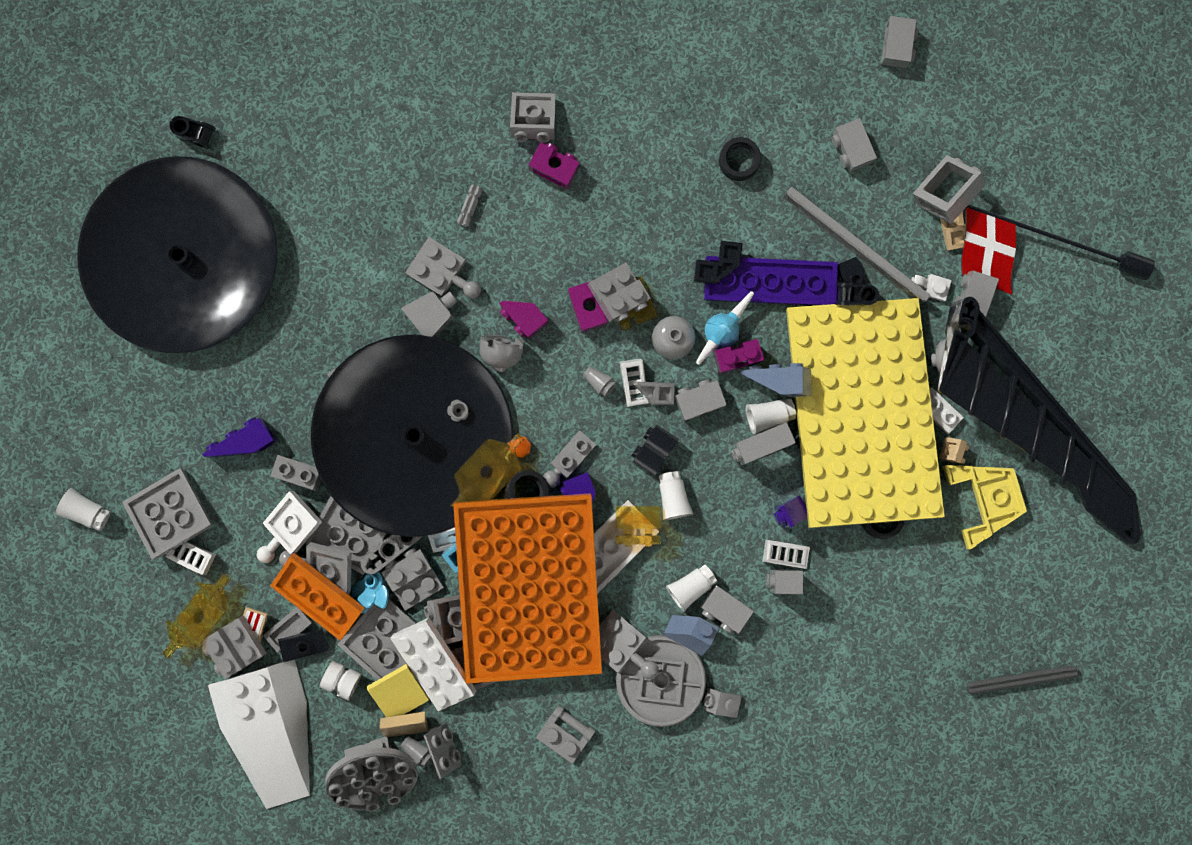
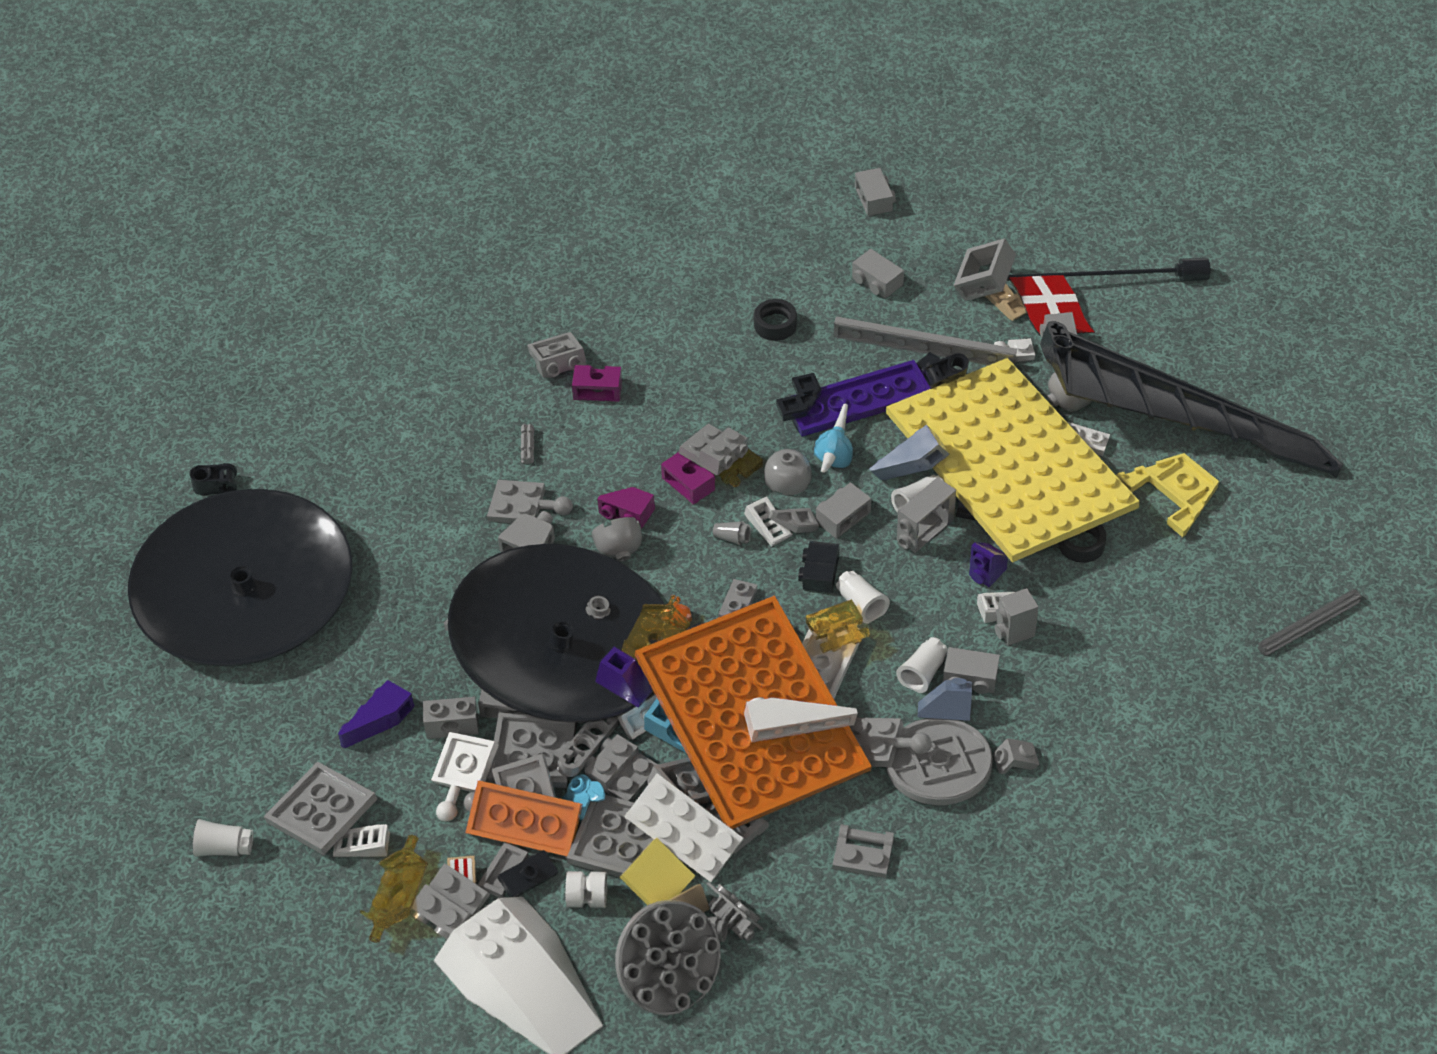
camera: 15 degrees left, 35 degrees down
(439, 510) = (624, 677): none -> dark purple slope
(544, 614) = (783, 717): none -> white slope
(728, 357) = (850, 463): magenta brick -> none
(954, 450) = (1118, 460): tan tile -> none

